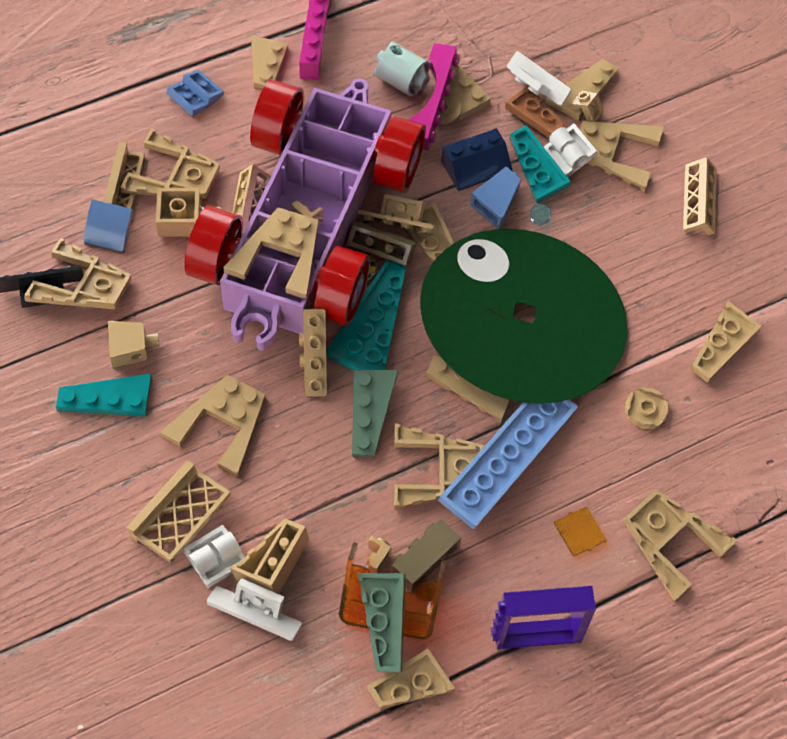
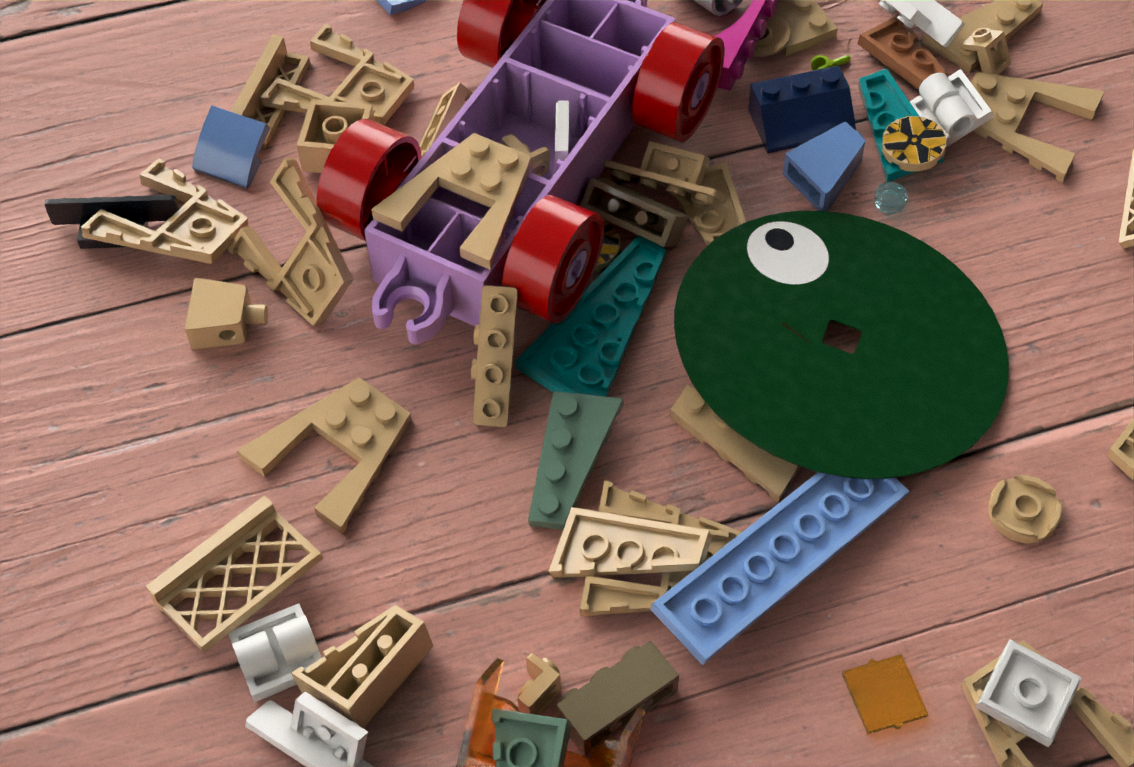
camera: 15 degrees right, 5 degrees down
(112, 396) = (178, 390): teal wing -> none
(187, 308) = (316, 270): none -> tan wing
(330, 203) = (561, 131): none -> white tile
(415, 462) = (618, 545): none -> tan wing
(484, 123) = (821, 62): none -> lime hand
(551, 177) = (914, 143): none -> tile
(662, 520) = (1029, 693): none -> white tile

